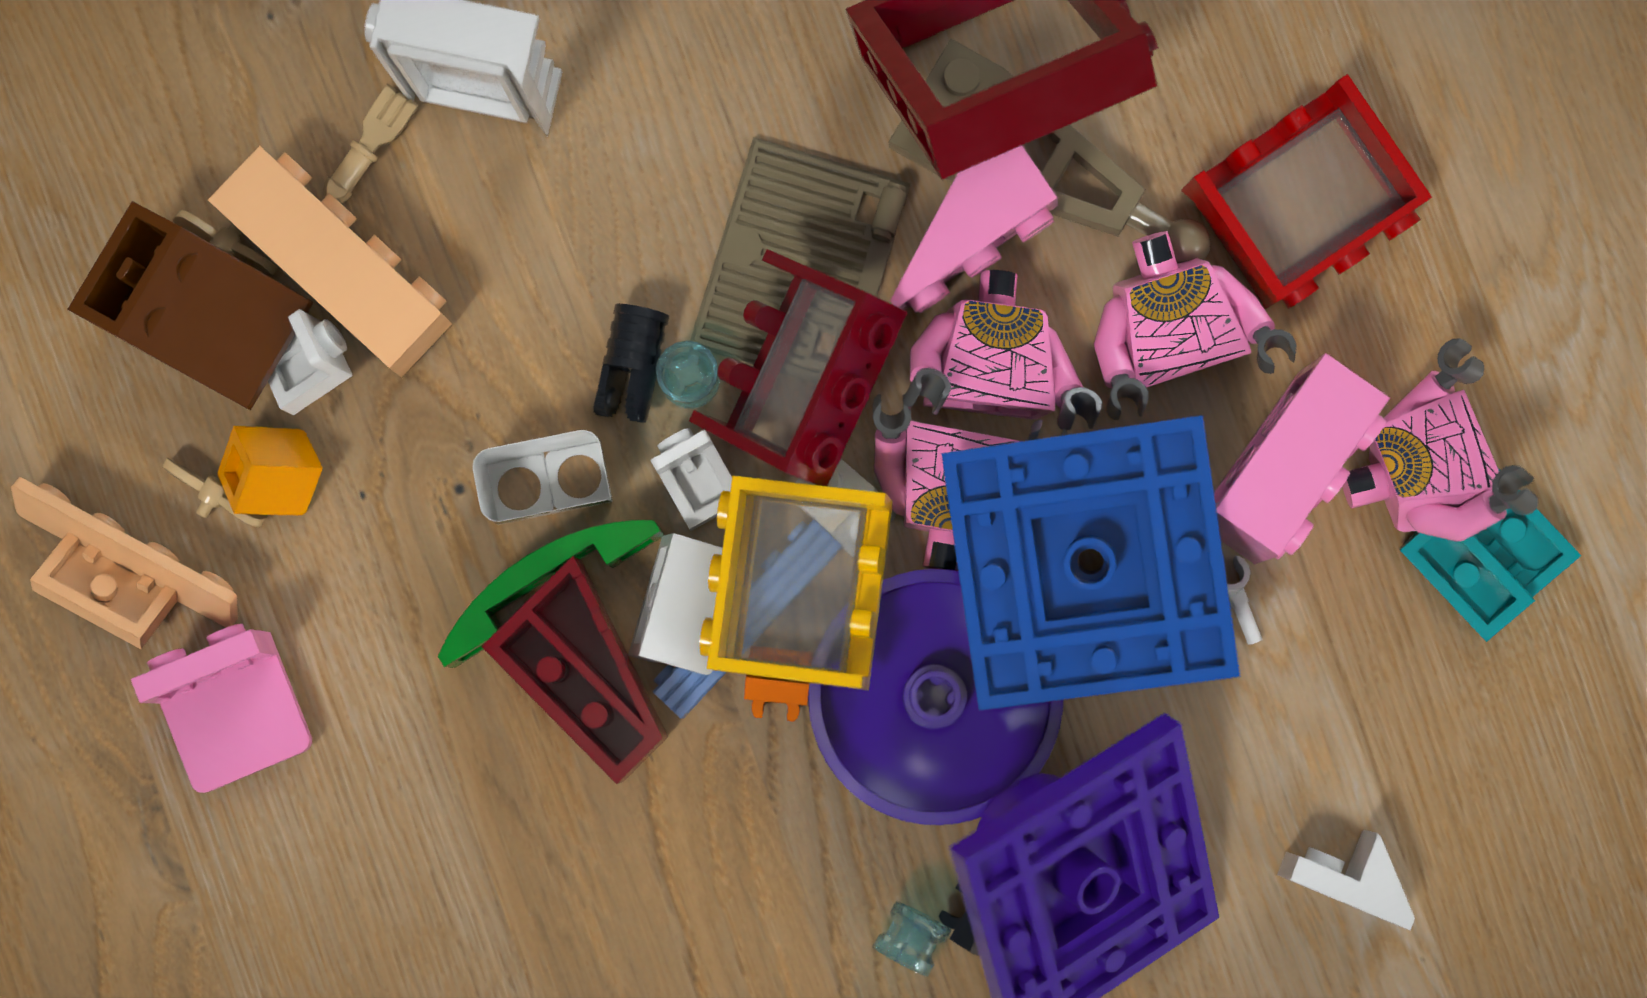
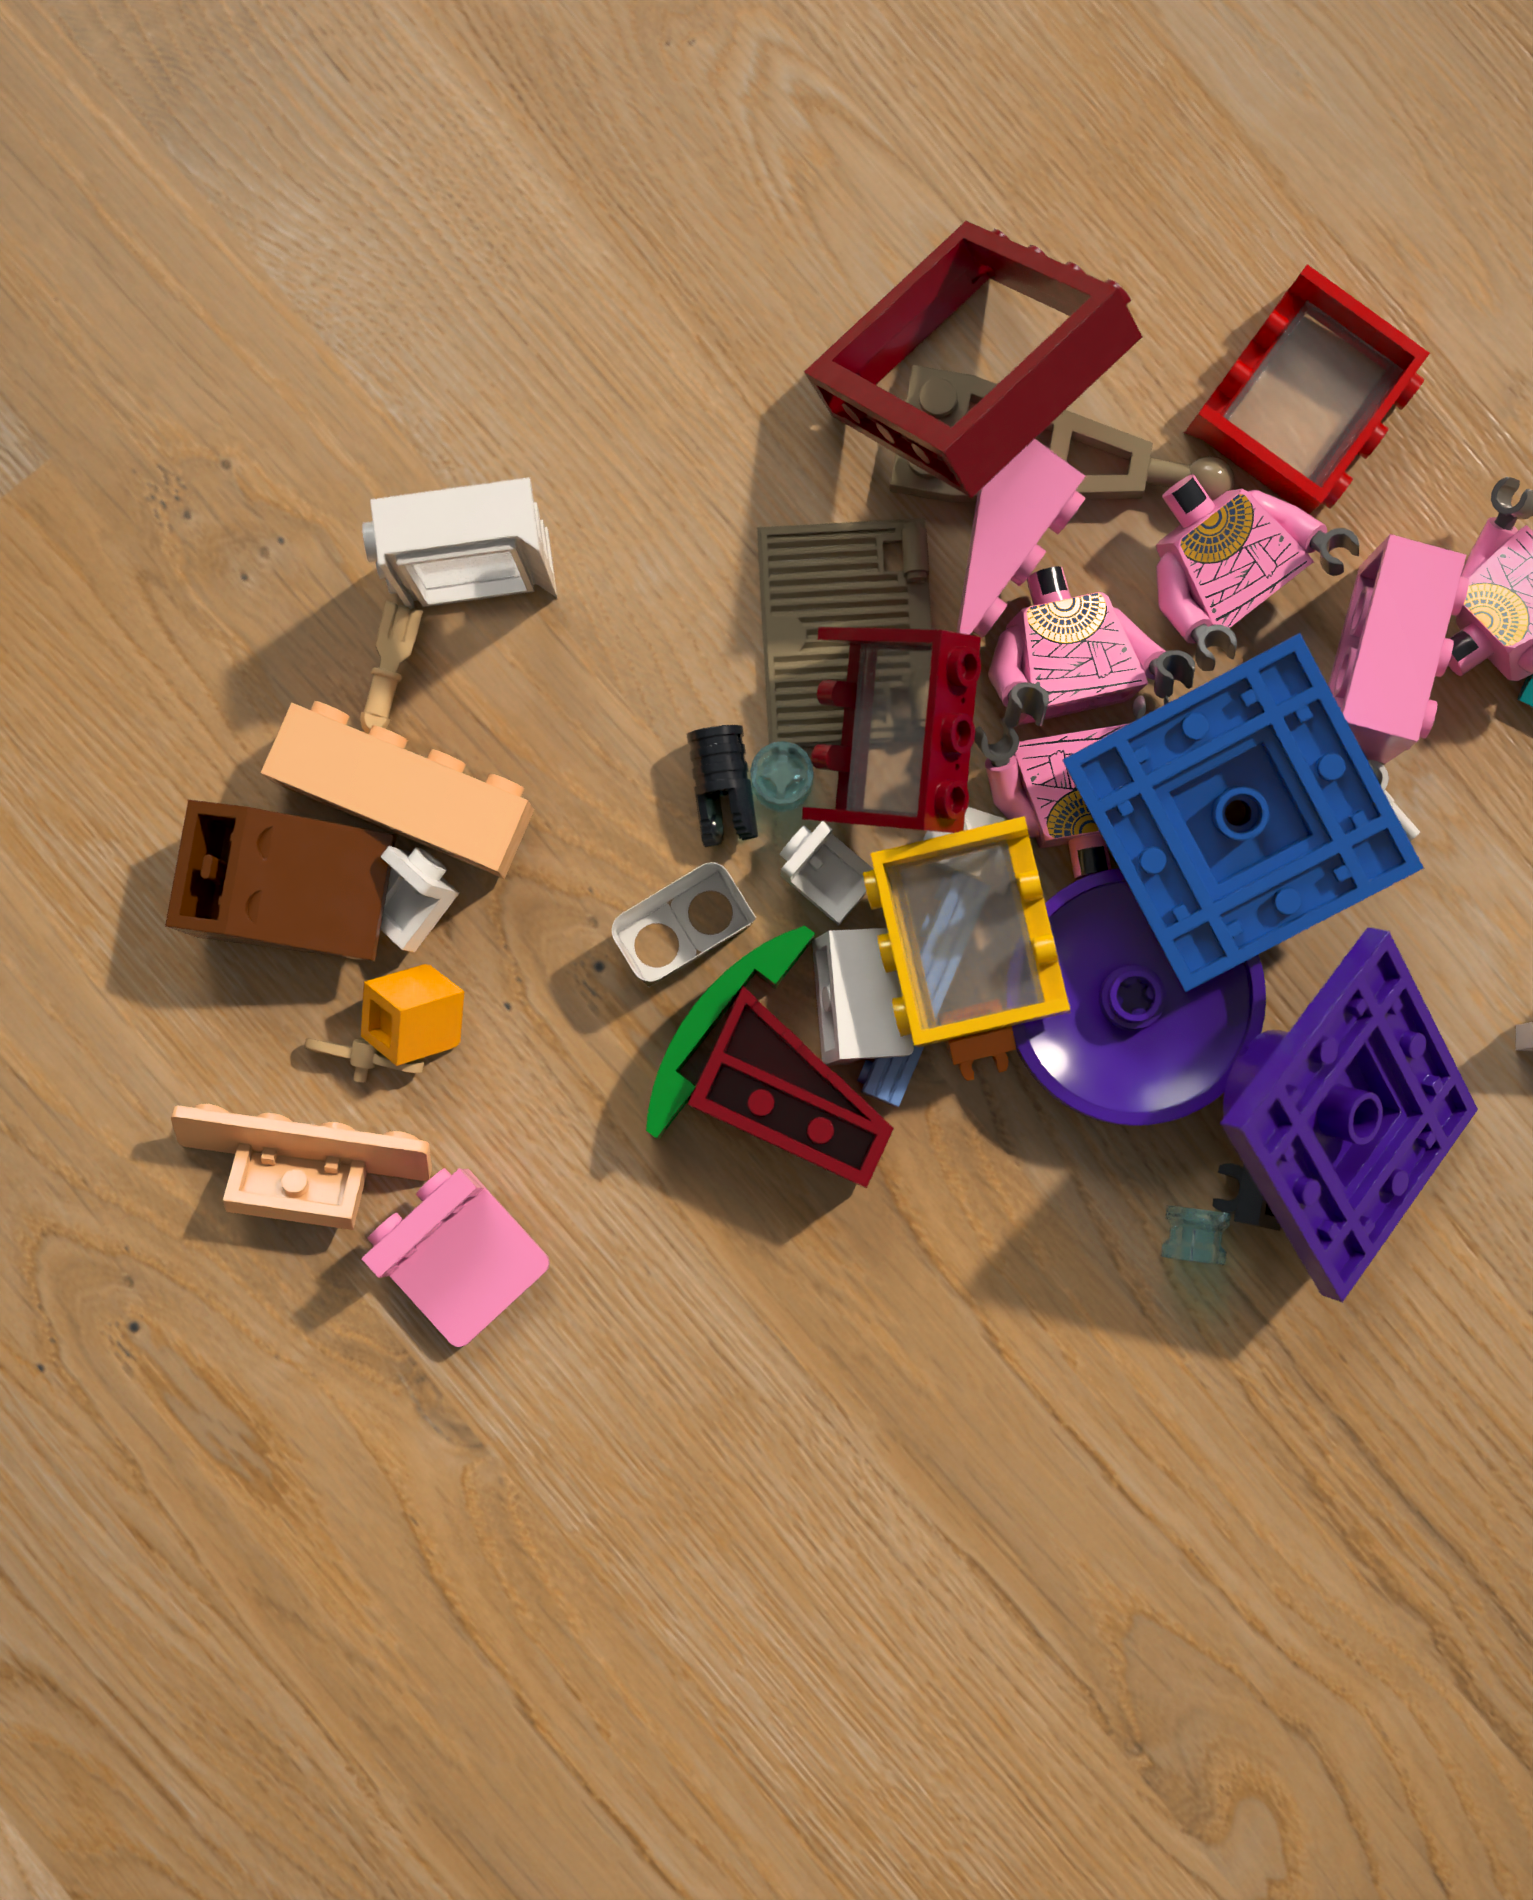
camera: 20 degrees left, 0 degrees up
(226, 240) = (288, 805): tan piece -> none

